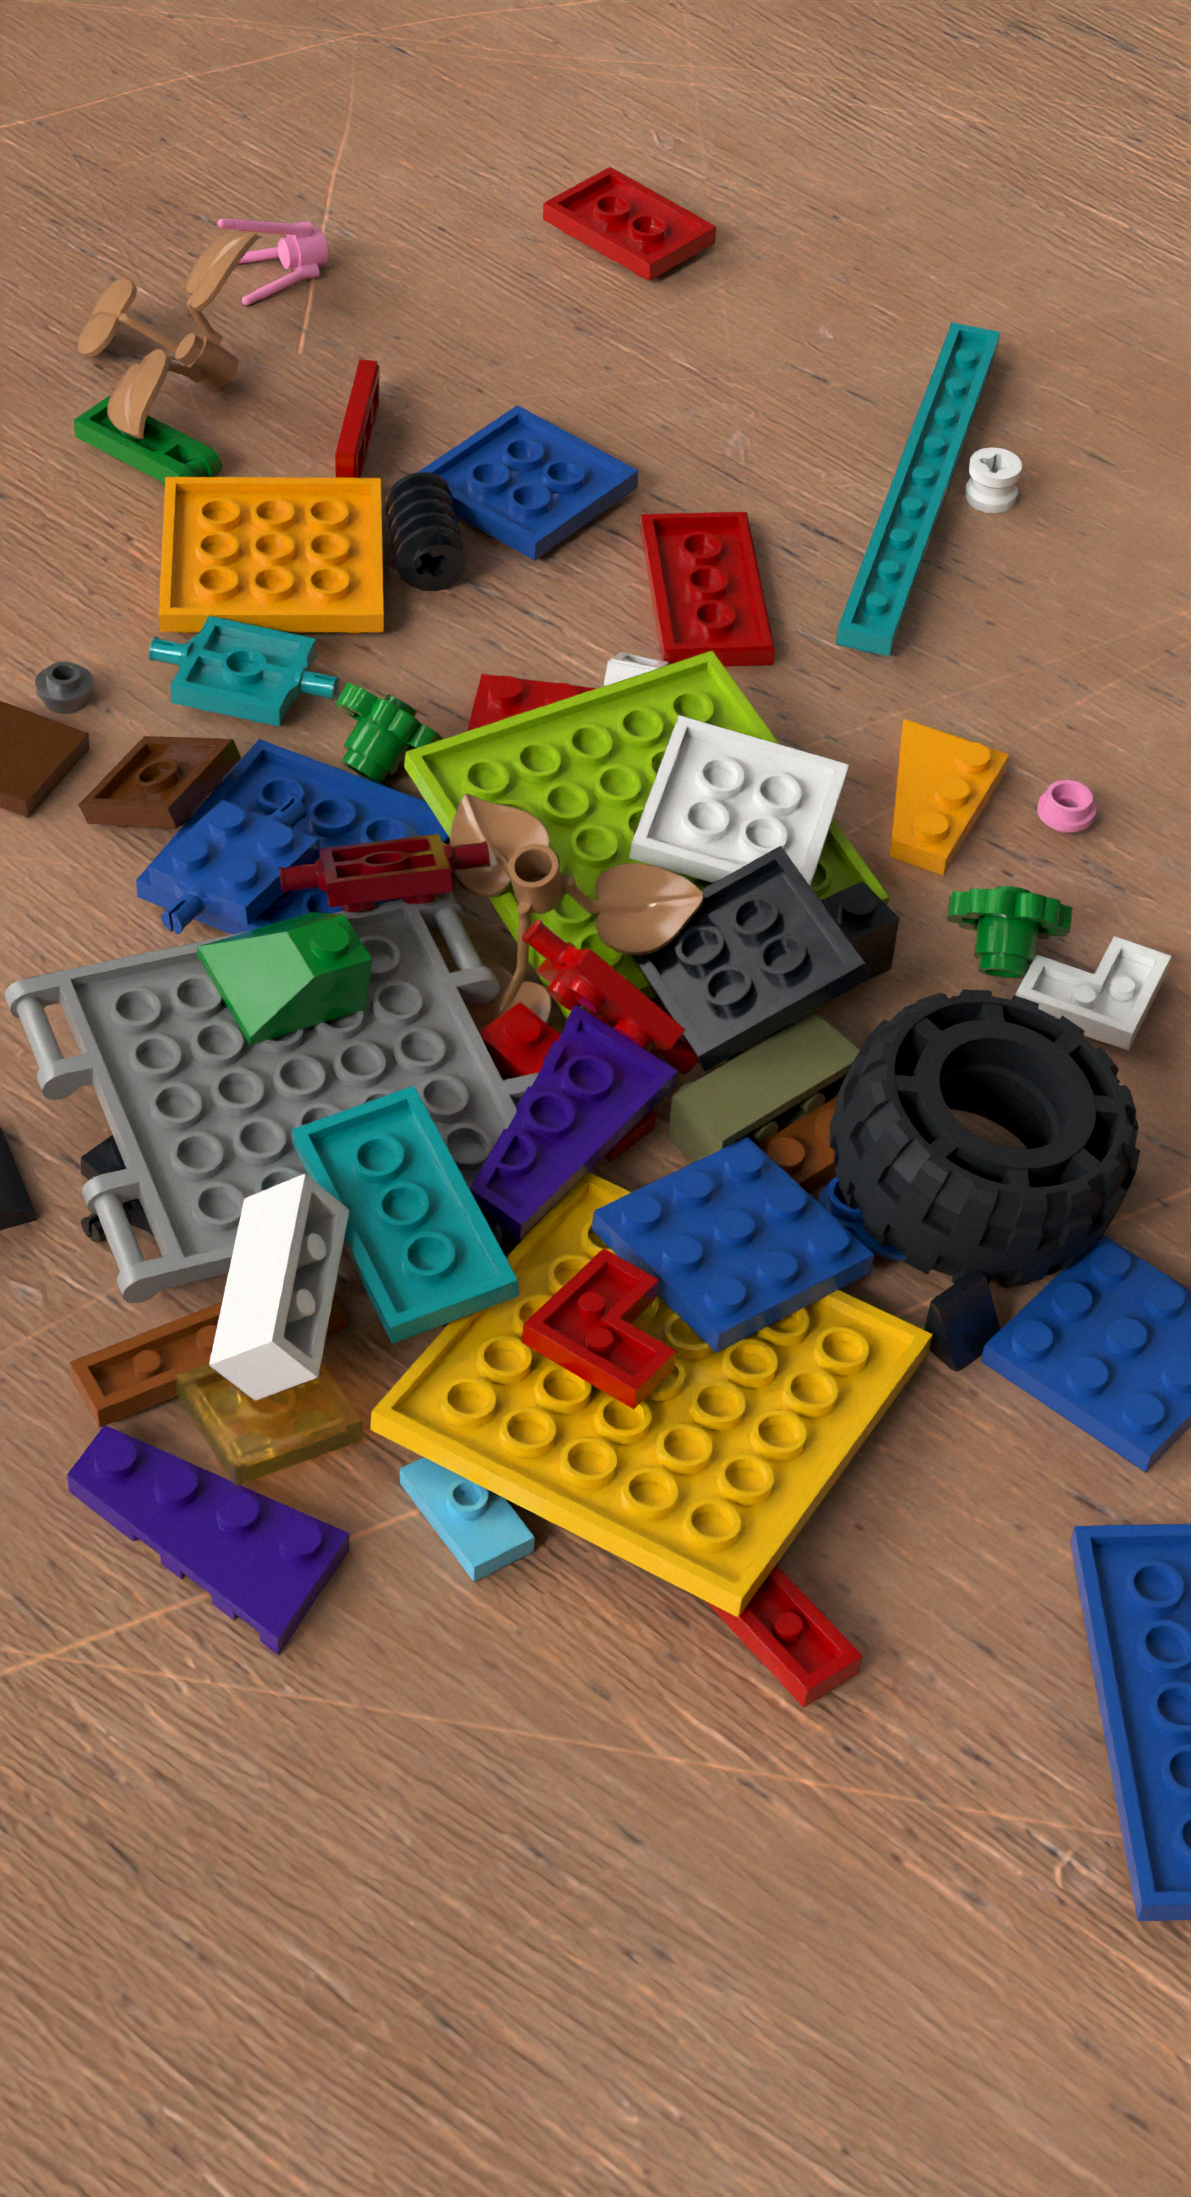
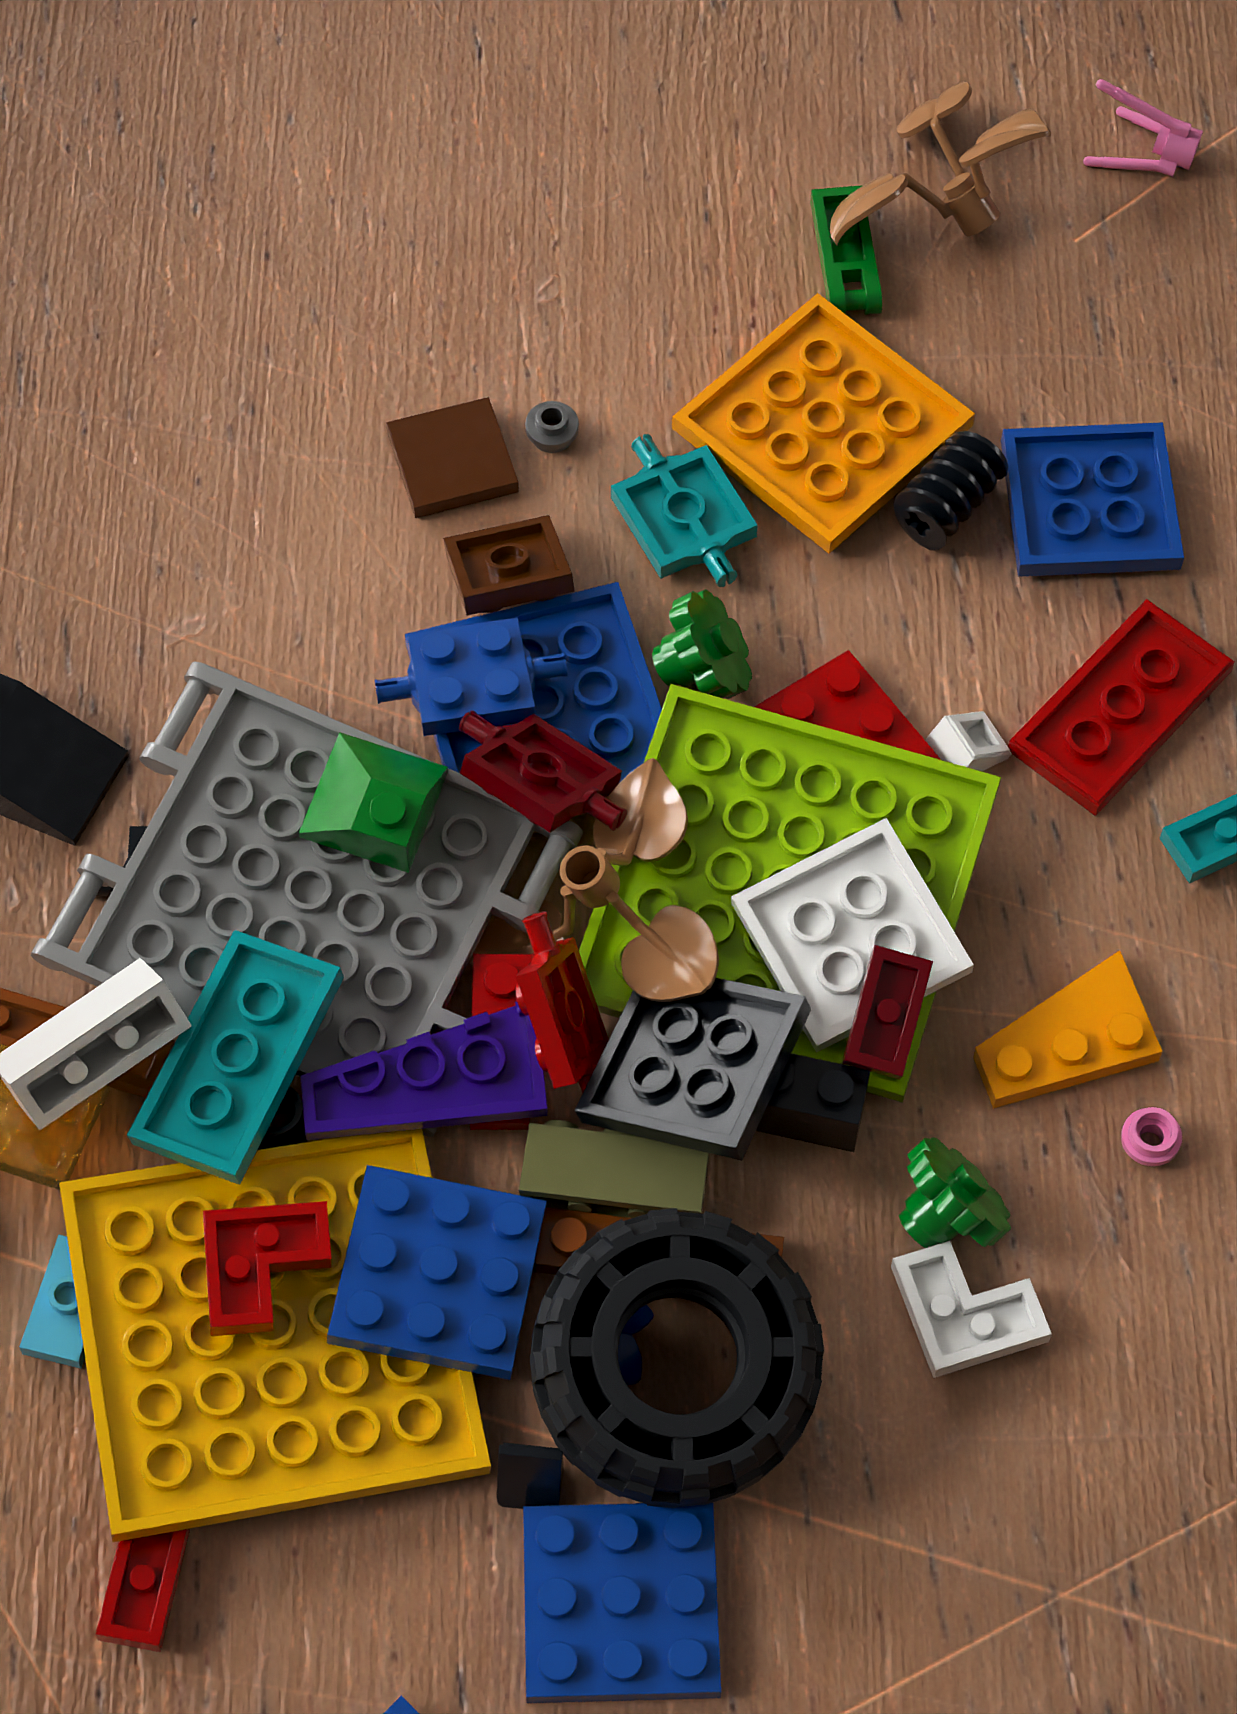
camera: 50 degrees right, 15 degrees up
(358, 421) = (1017, 350): red tile -> none
(837, 826) = (887, 1012): none -> dark red plate

